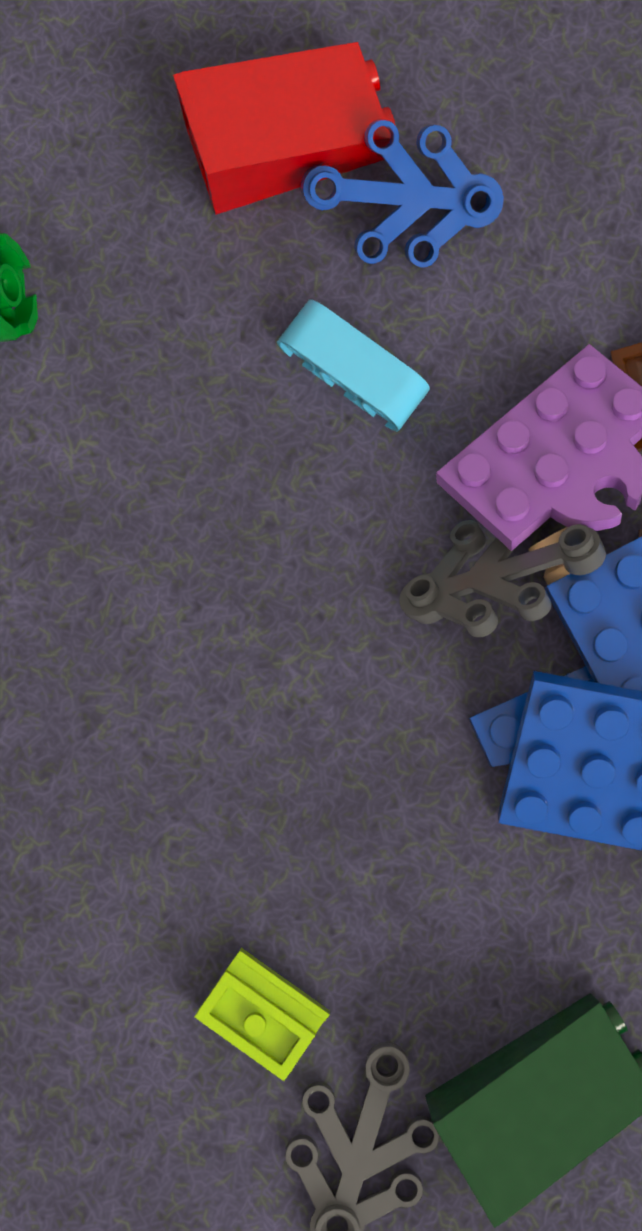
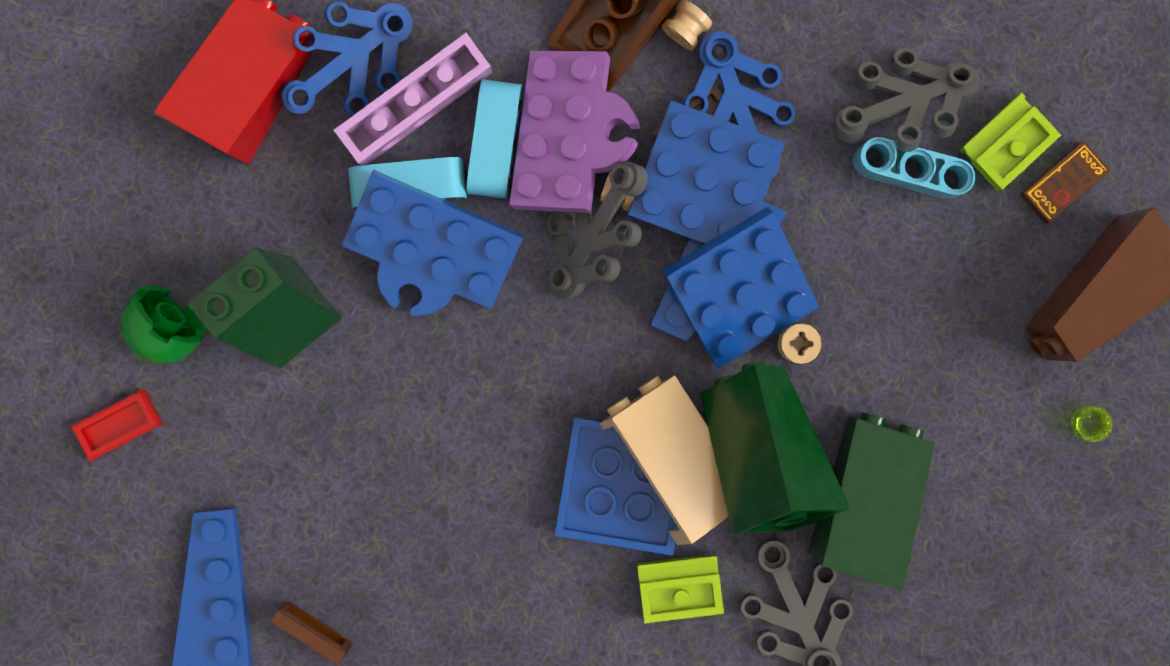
camera: 40 degrees left, 5 degrees up
(106, 354) = (265, 307): none -> dark green slope
(298, 856) = (608, 494): none -> blue plate
(321, 443) = (429, 246): none -> blue plate
(381, 879) = (674, 454): none -> tan panel
(434, 289) = (414, 100): none -> lavender brick
(476, 396) = (493, 139): none -> medium azure beam
(478, 957) = (768, 453): none -> dark green slope
(596, 864) = (790, 343): none -> tan wheel

